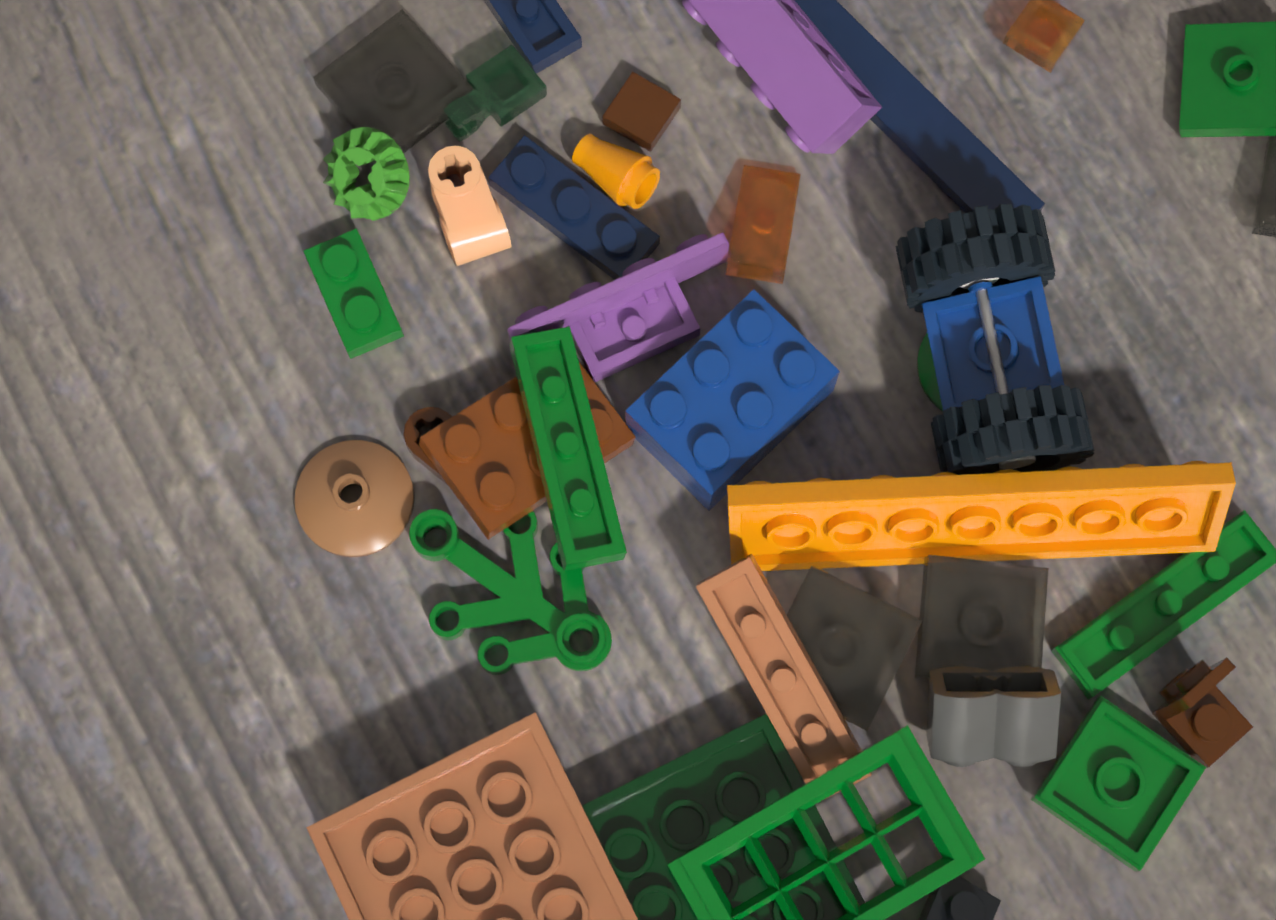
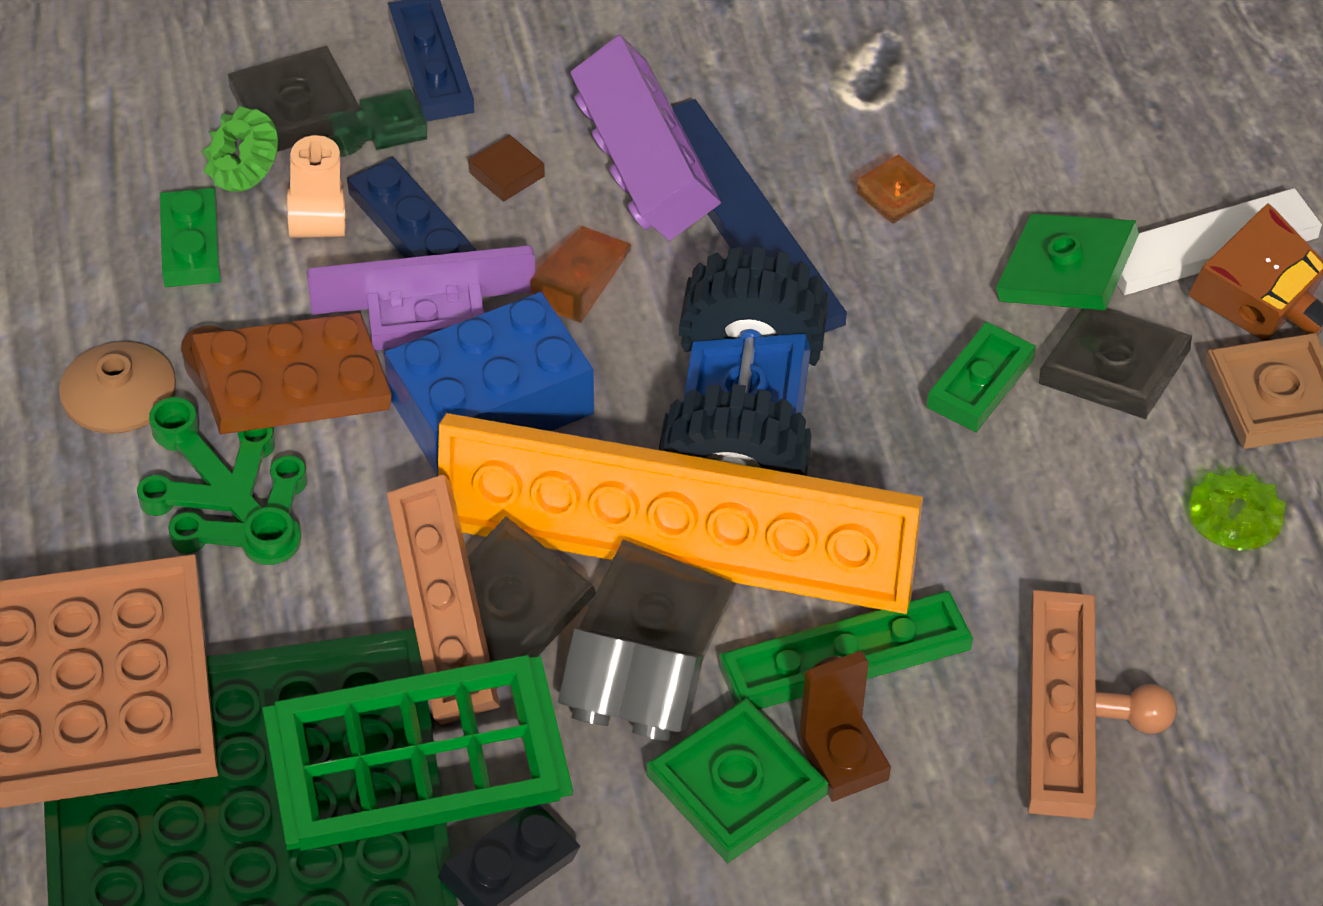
camera: 15 degrees right, 25 degrees down
(567, 449) = (317, 368): green plate -> none
(620, 172) = (467, 202): light orange cone -> none
(1199, 246) = (981, 376): none -> green plate

